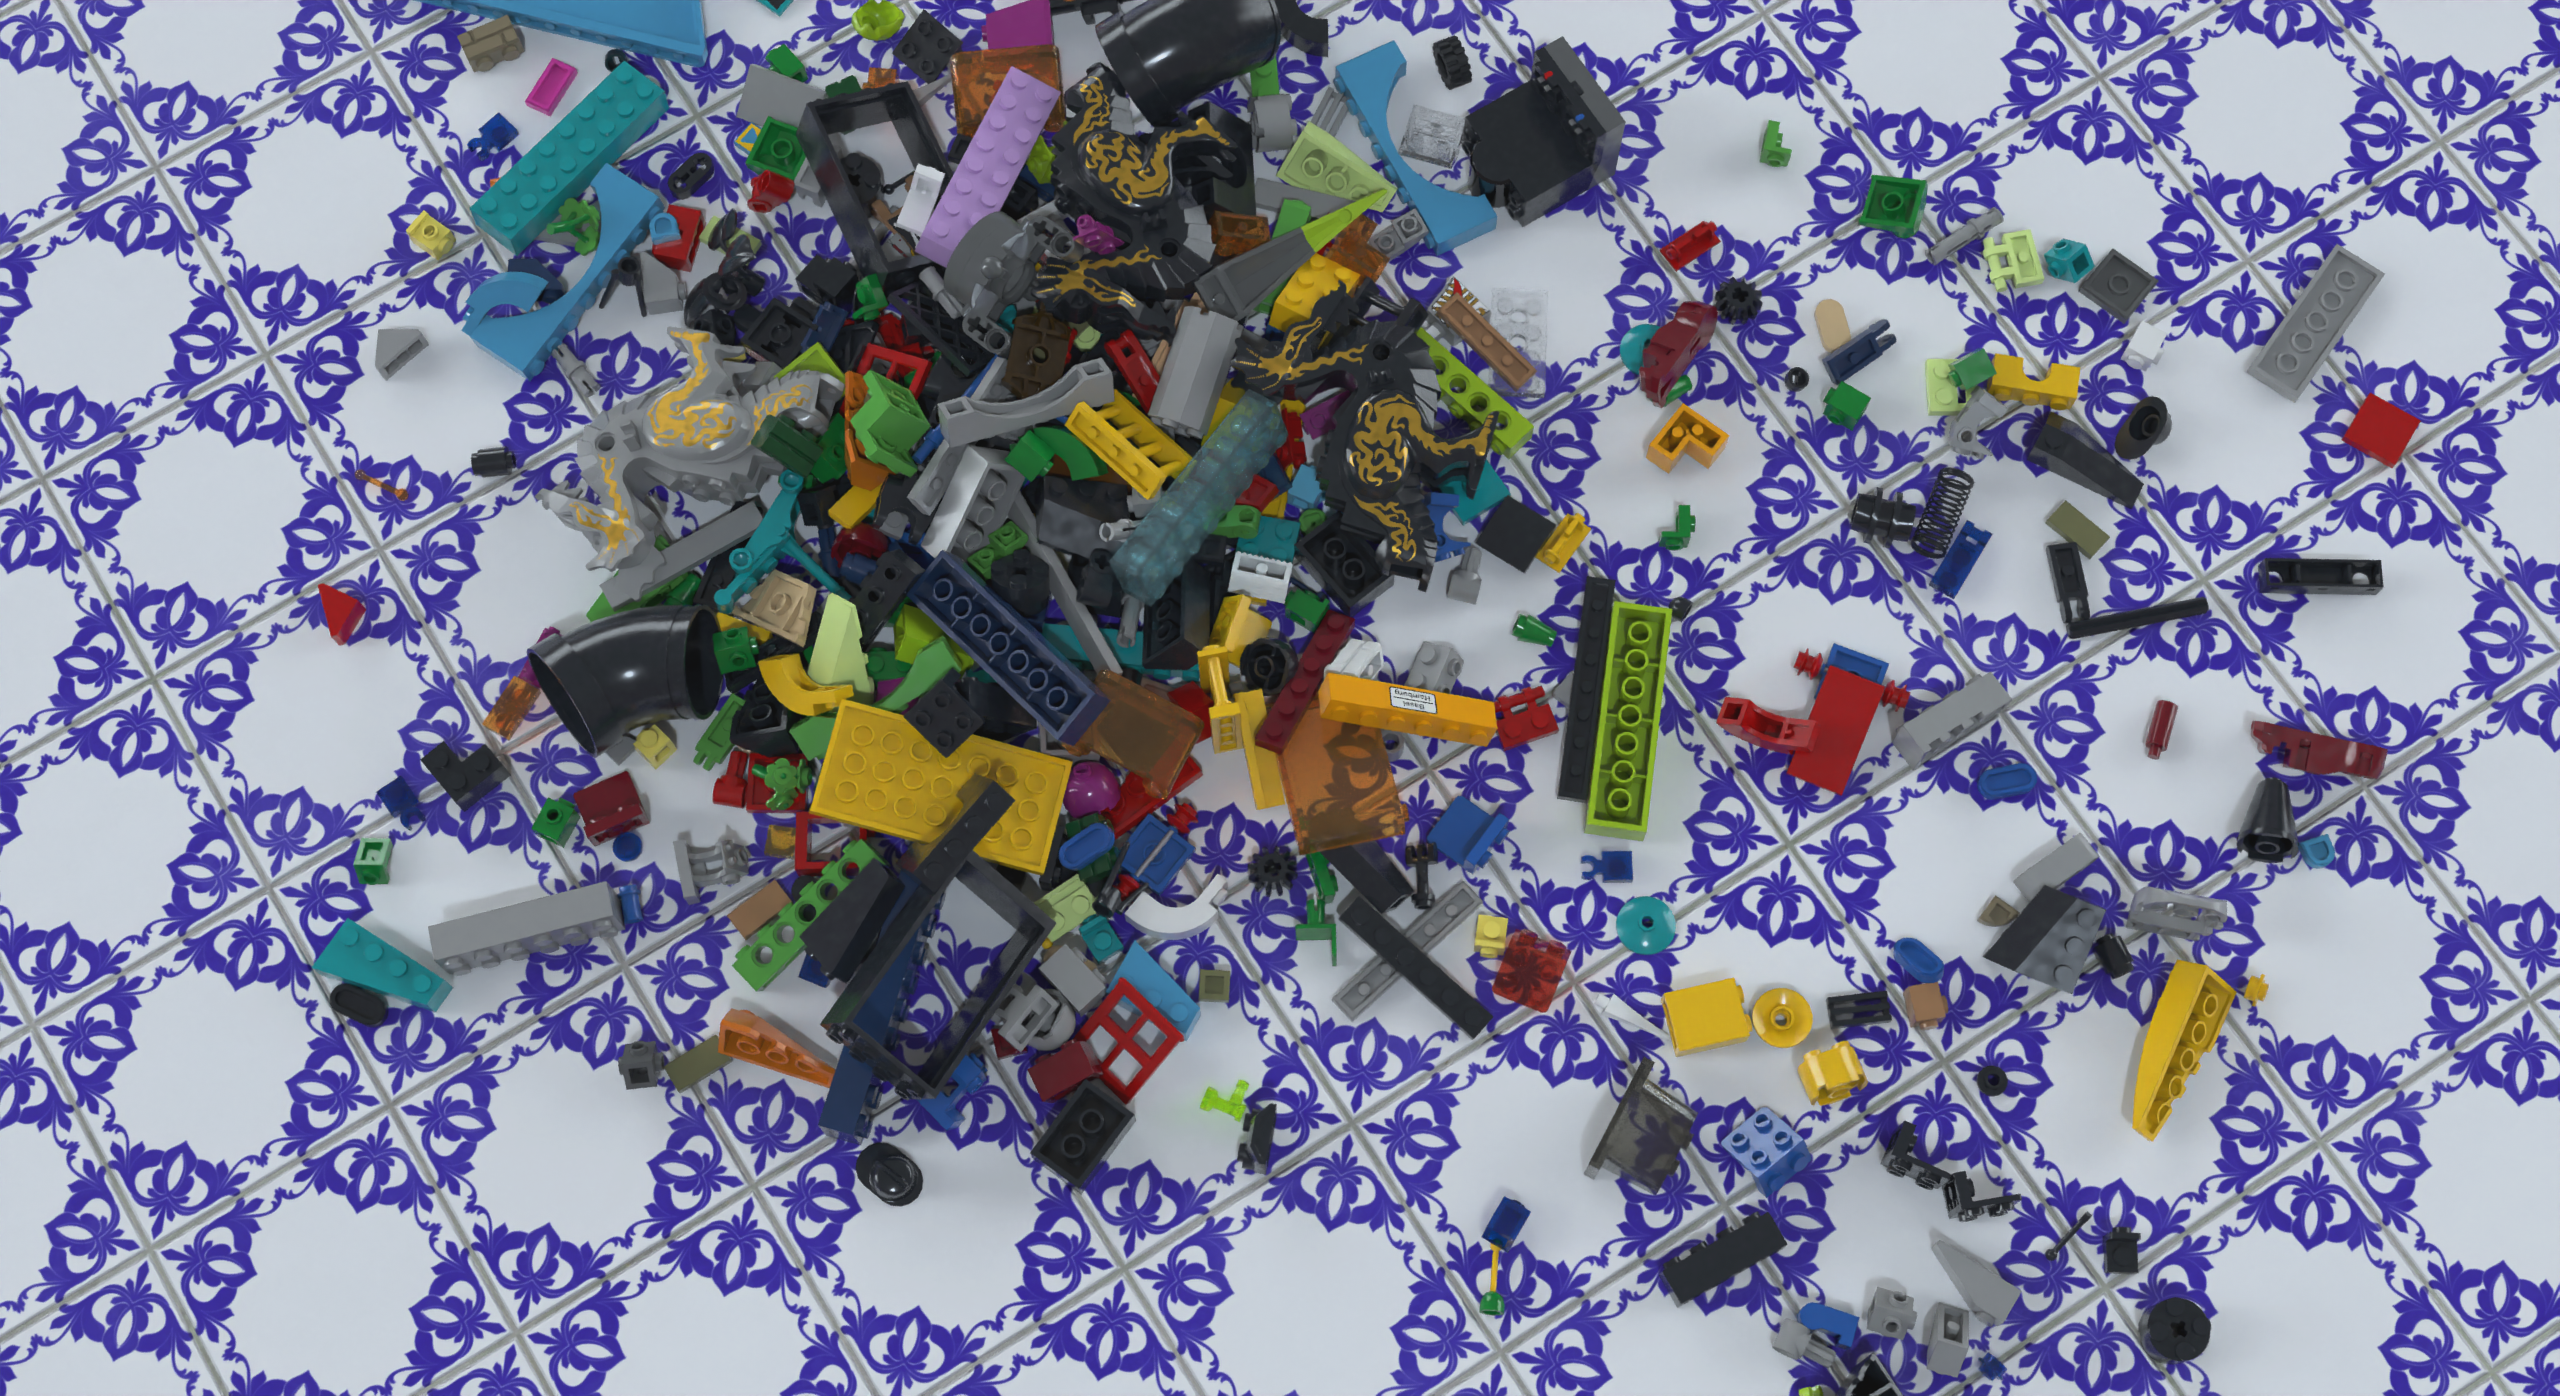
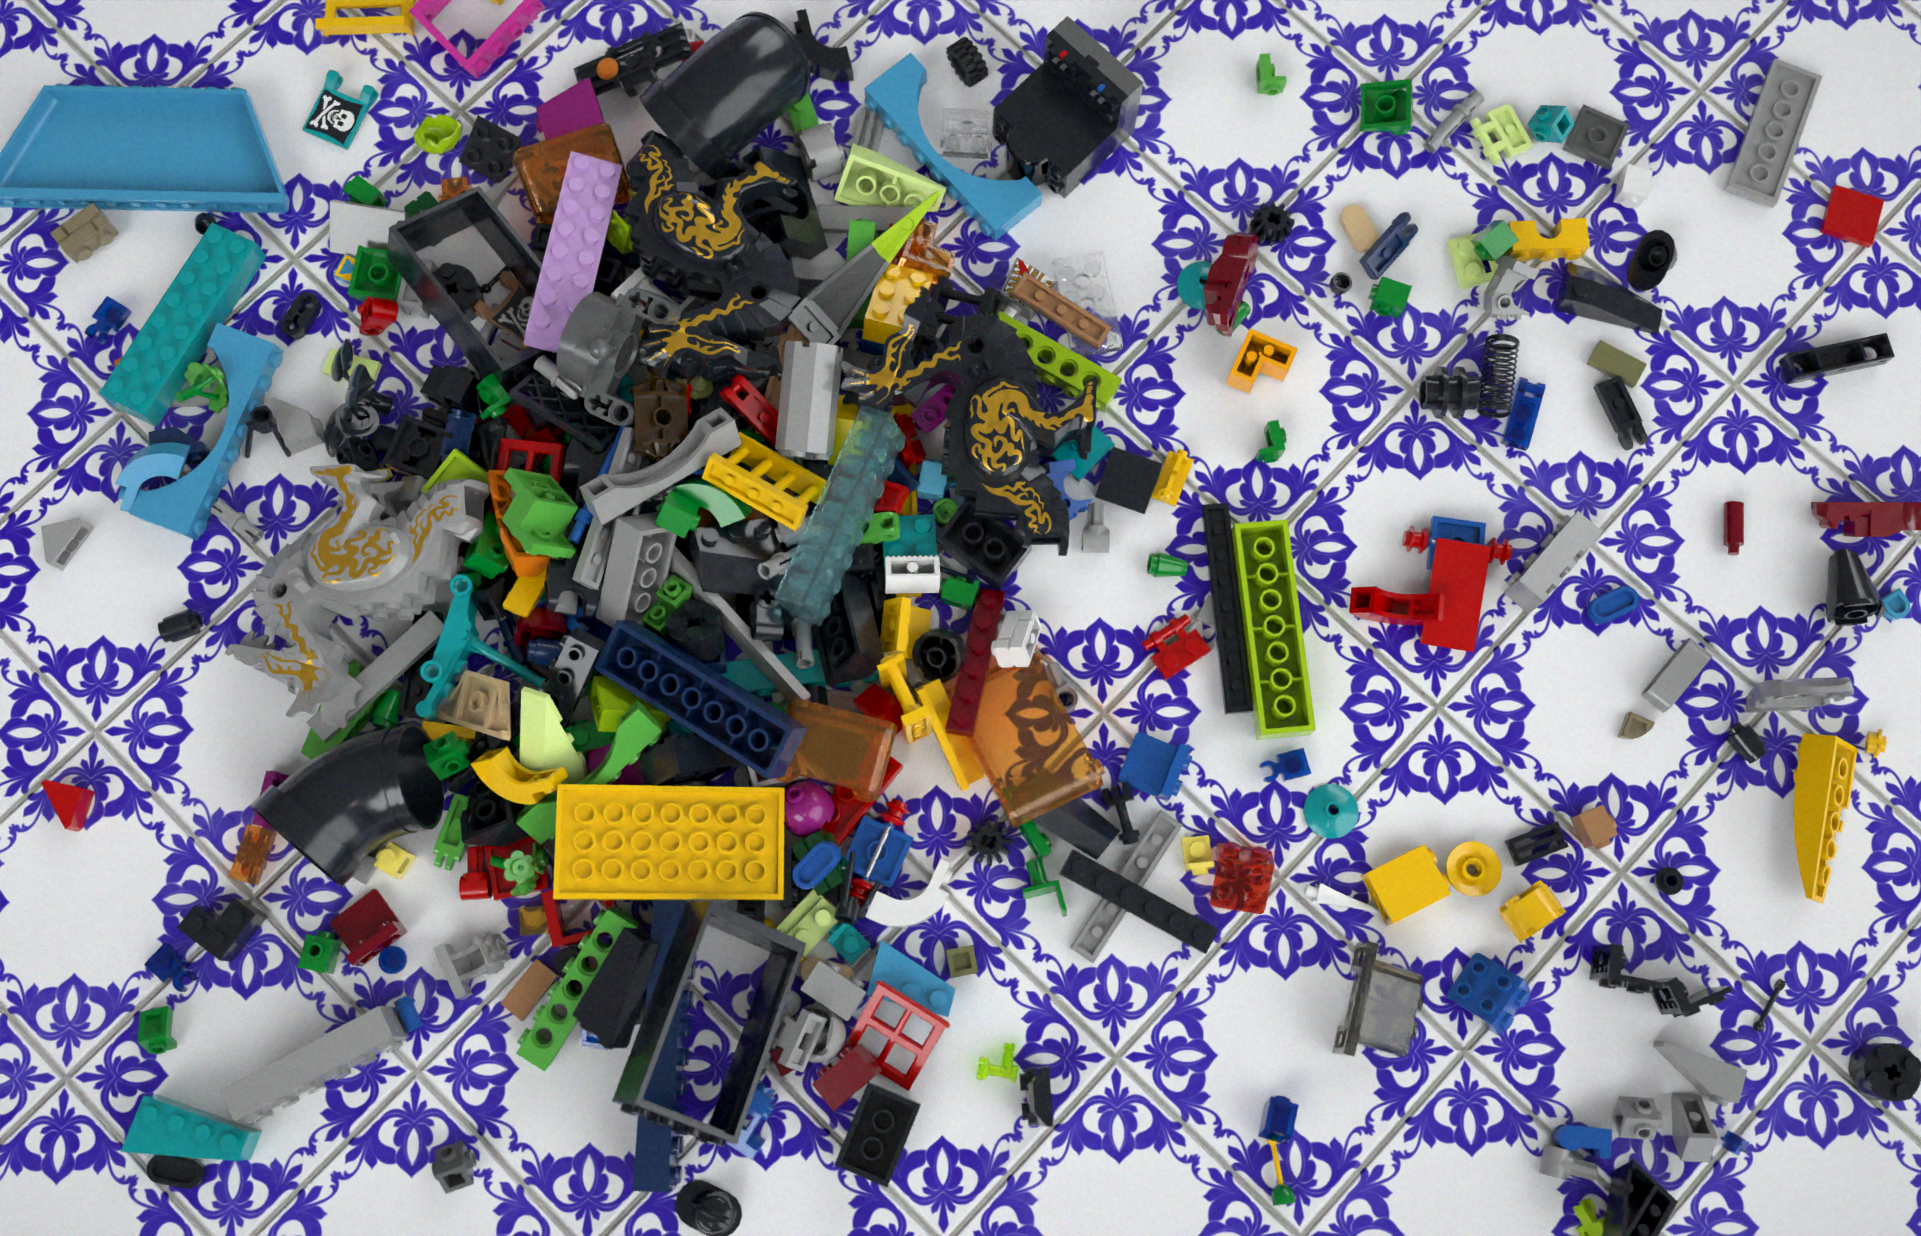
camera: 15 degrees left, 5 degrees up
(401, 494) = (101, 674): clear orange hinge -> none
(431, 235) = (71, 425): light yellow brick -> none
(551, 87) = (151, 261): dark pink tile -> none
(664, 228) = (286, 372): dark azure tile -> none
(682, 252) = (310, 387): red brick -> none
(696, 1064) = (506, 1149): olive tile -> none
(760, 1043) = (556, 1117): orange wedge -> none
(786, 445) = (447, 556): dark green brick -> none
(920, 199) = (517, 295): white bracket -> none
(934, 862) = (685, 920): black arch -> none
(945, 715) = (656, 777): black bracket -> none
(1096, 236) = (689, 295): magenta hinge -> none
(1238, 232) = (815, 260): clear orange brick -> none
(1401, 236) = (960, 230): light grey slope -> none
(1407, 709) = (1074, 668): light orange brick -> none
(1435, 668) = (1087, 626): light grey bracket -> none
(1680, 608) = (1291, 513): black hinge -> none
(1691, 245) = (1217, 181): red hinge -> none
(1722, 1259) = (1476, 1104): black brick -> none
(1918, 960) = (1579, 788): blue tile -> none
(2049, 938) = (1691, 741): black wedge -> none
(2121, 1251) = (1818, 1009): black bracket -> none
(2137, 617) = (1687, 431): black axle -> none

